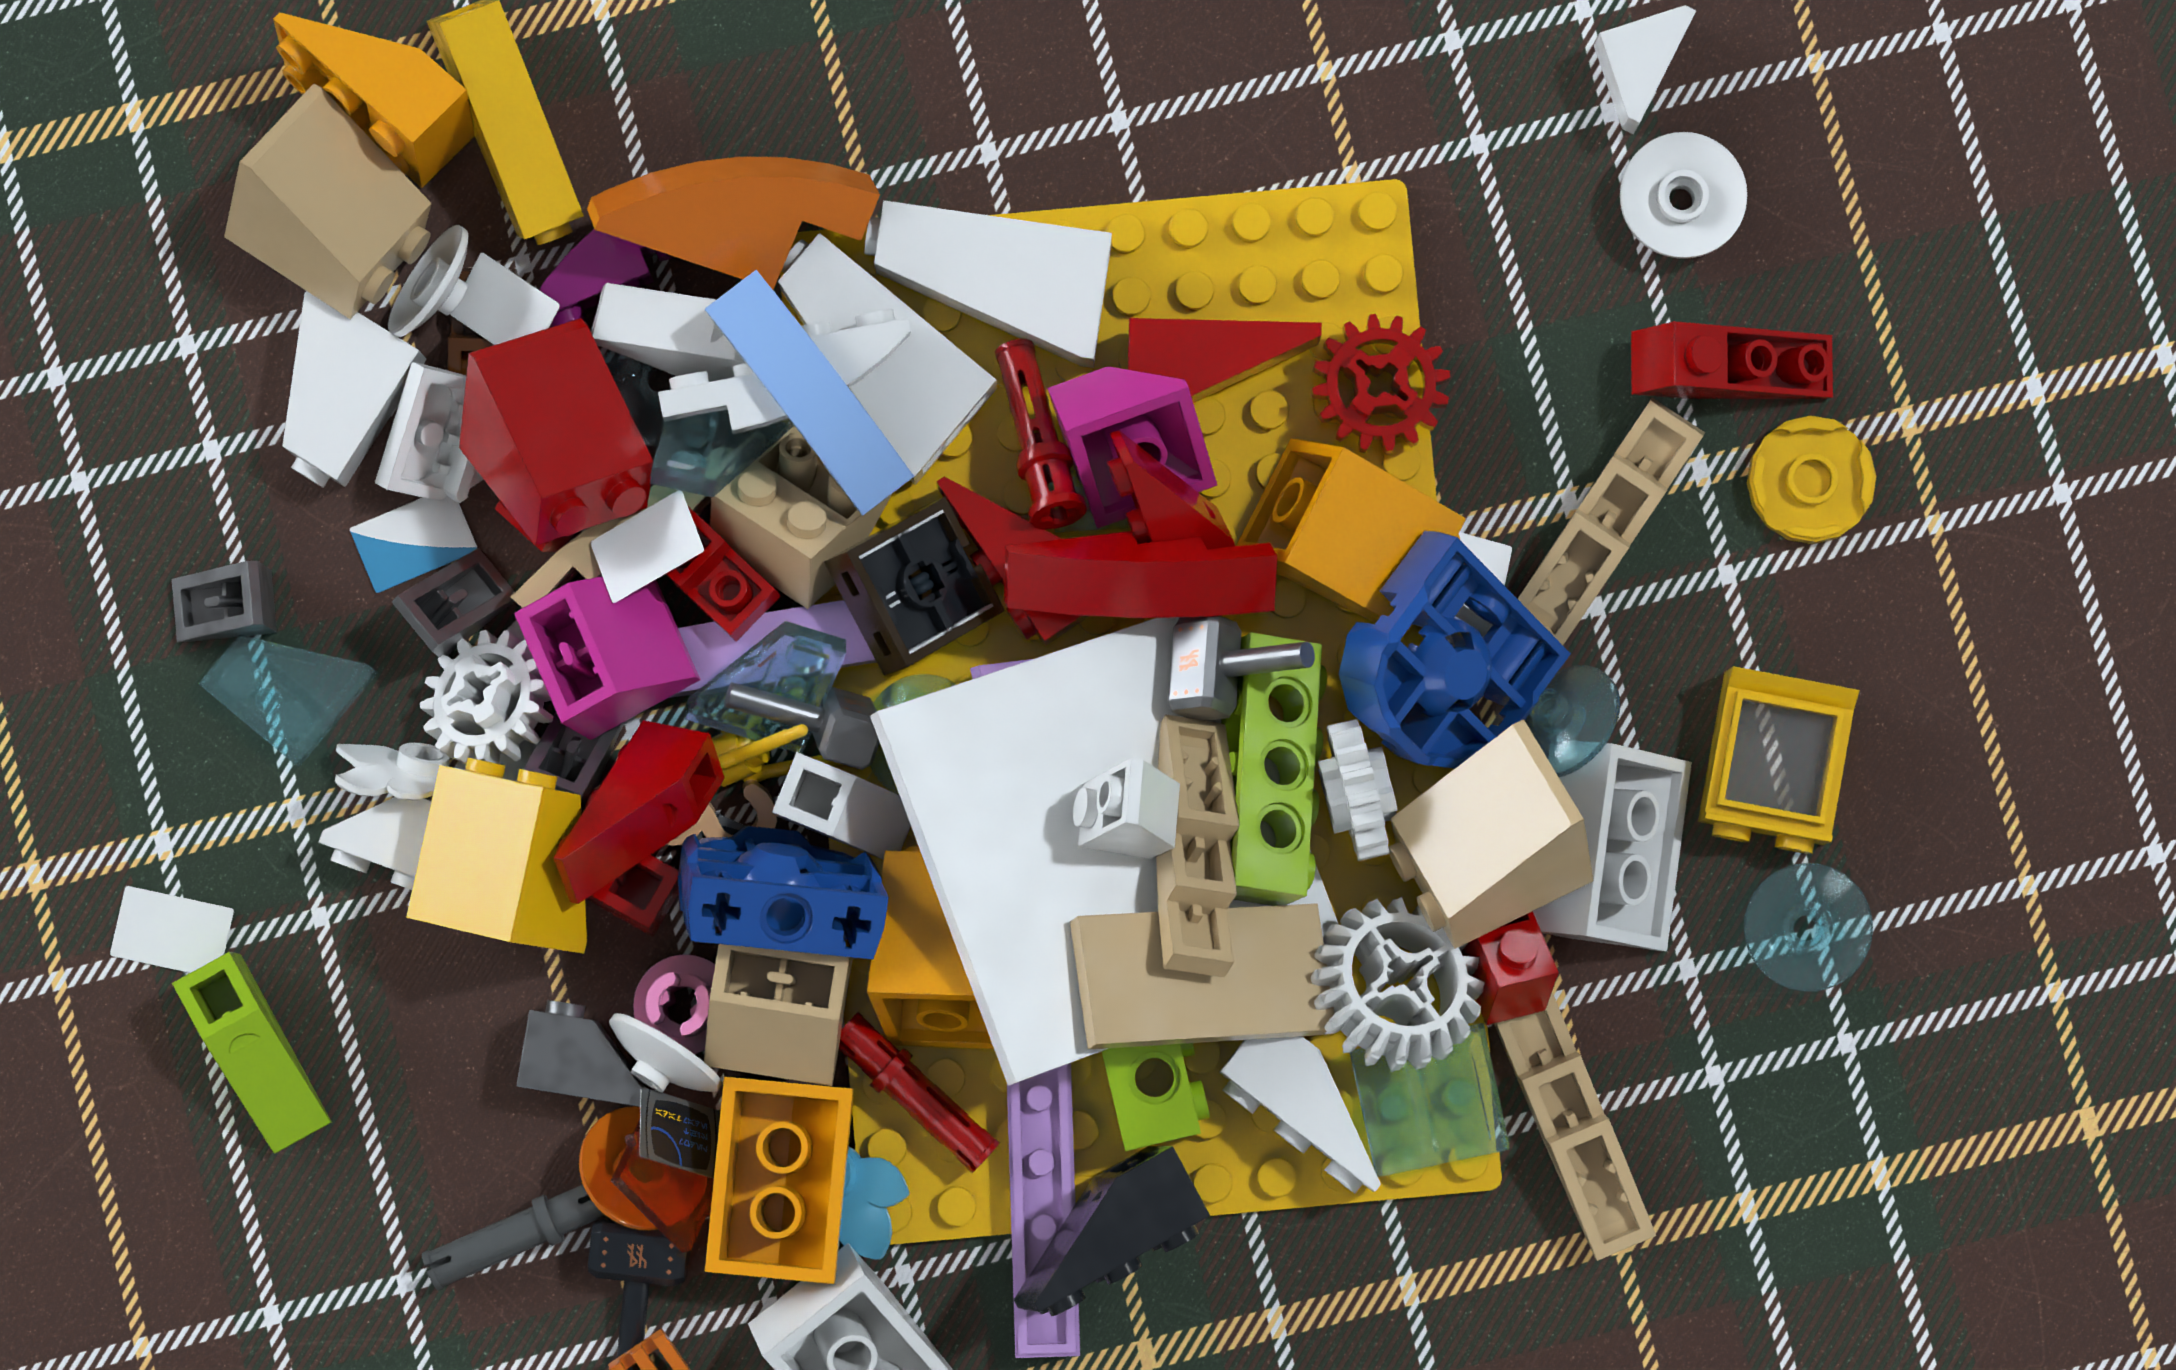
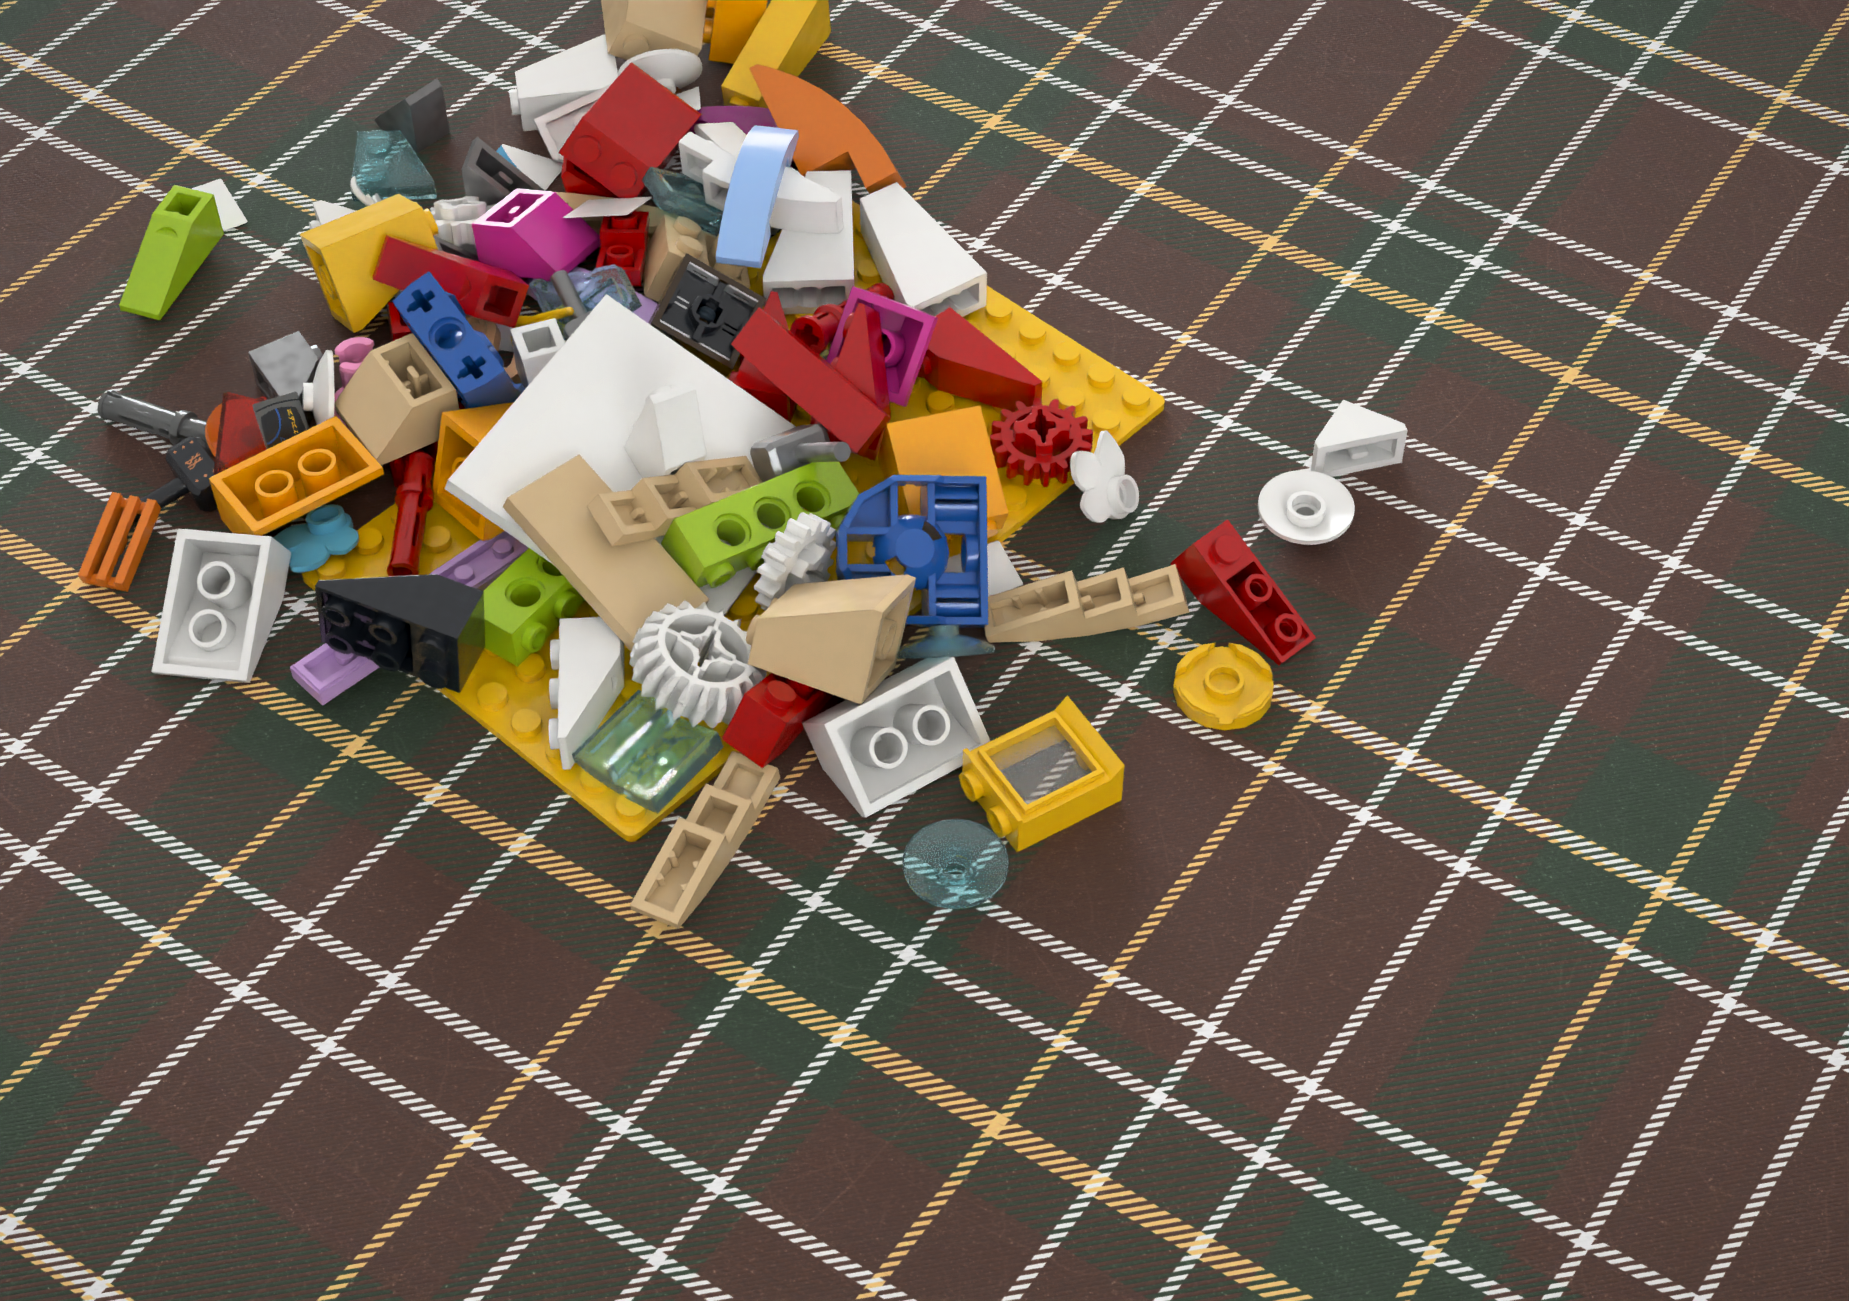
camera: 50 degrees right, 35 degrees down
(1484, 368) = (1103, 481): none -> white plate

